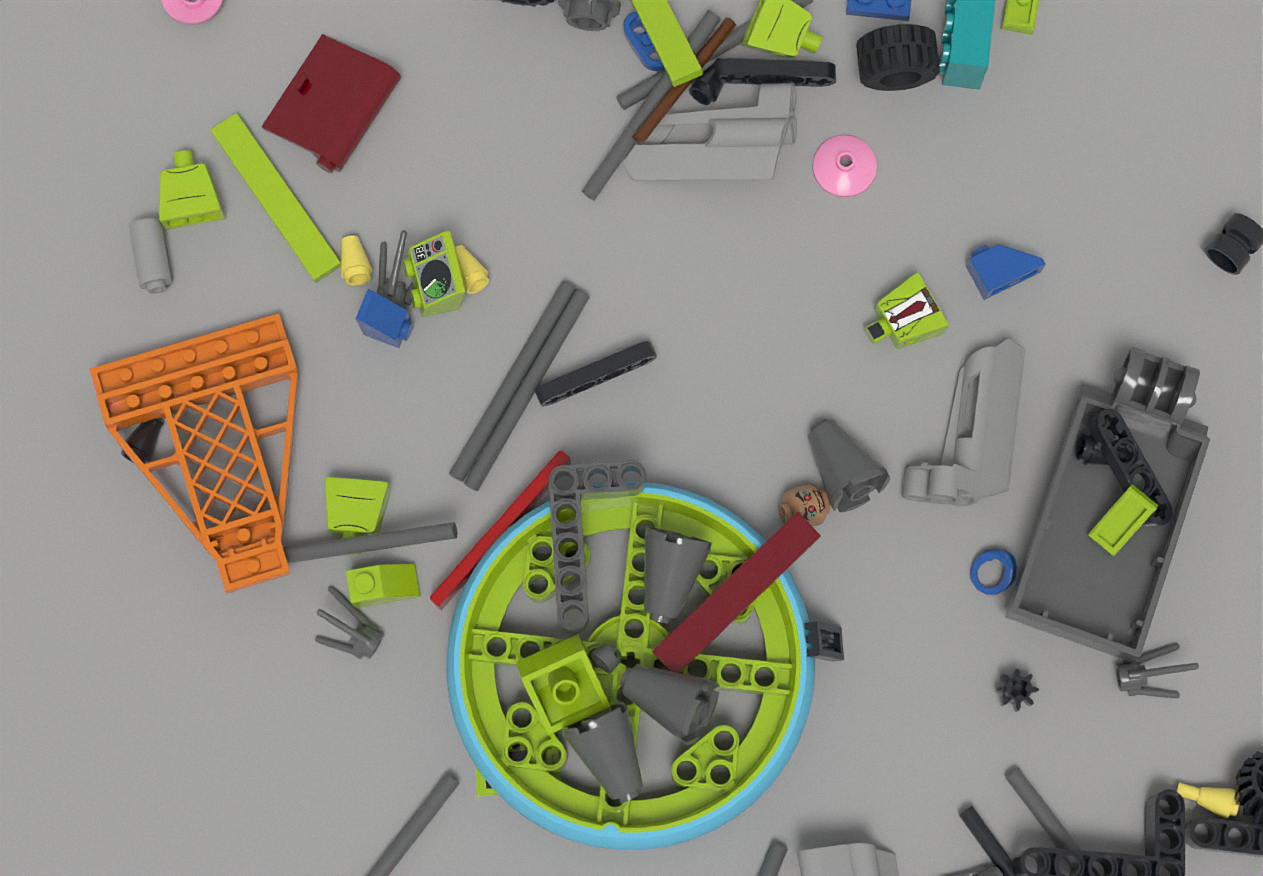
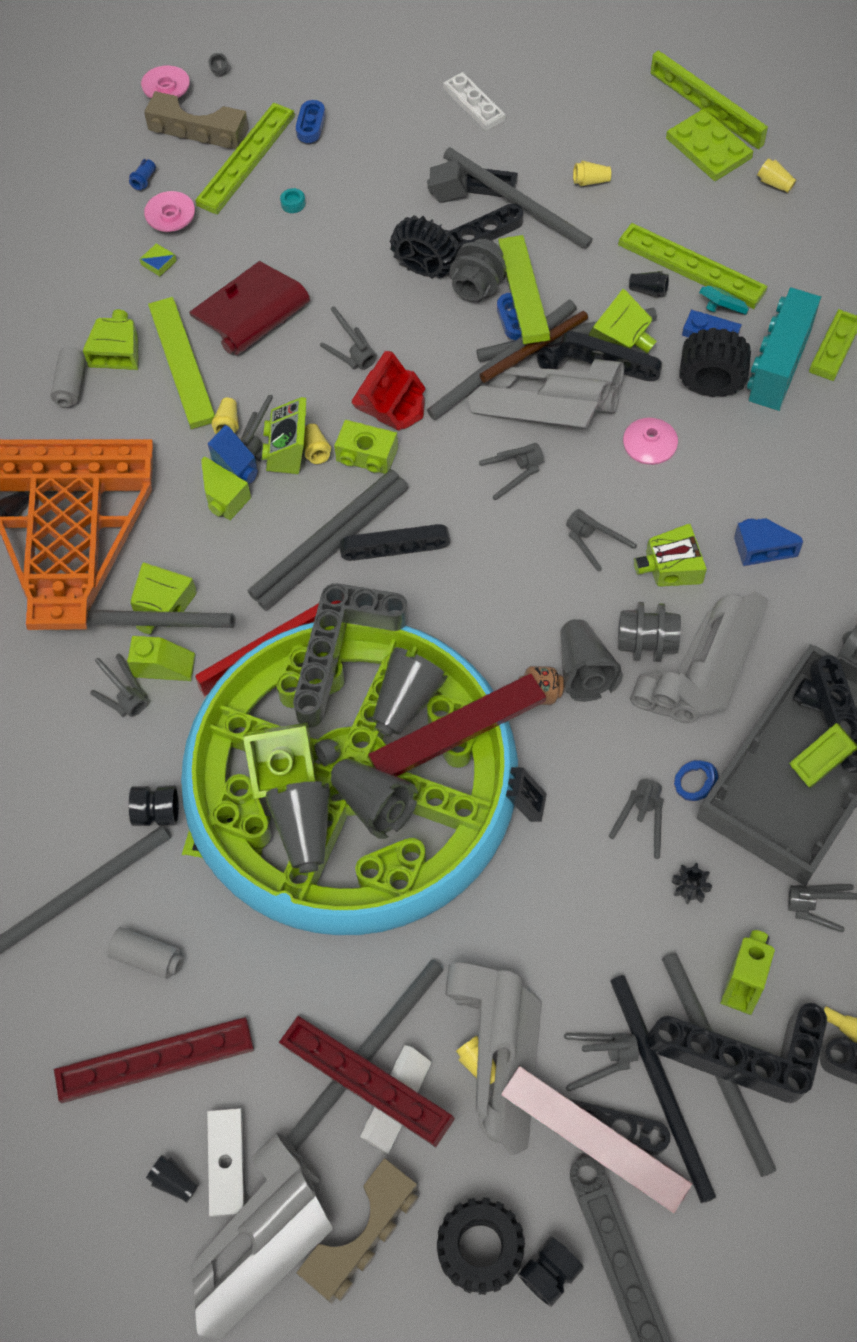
camera: 15 degrees right, 15 degrees down
(199, 63) = (158, 259): none -> lime tile
(382, 357) = (223, 490): none -> lime slope
(432, 756) = (152, 806): none -> black wheel
(485, 134) = (361, 352): none -> dark grey plant
(513, 249) = (380, 447): none -> lime brick
(536, 186) = (391, 394): none -> red piece
(712, 226) = (527, 456): none -> dark grey plant
(799, 296) = (584, 525): none -> dark grey plant
(905, 417) = (649, 632): none -> dark grey piece
(949, 607) = (646, 799): none -> dark grey plant
(1096, 771) = (748, 973): none -> lime torso

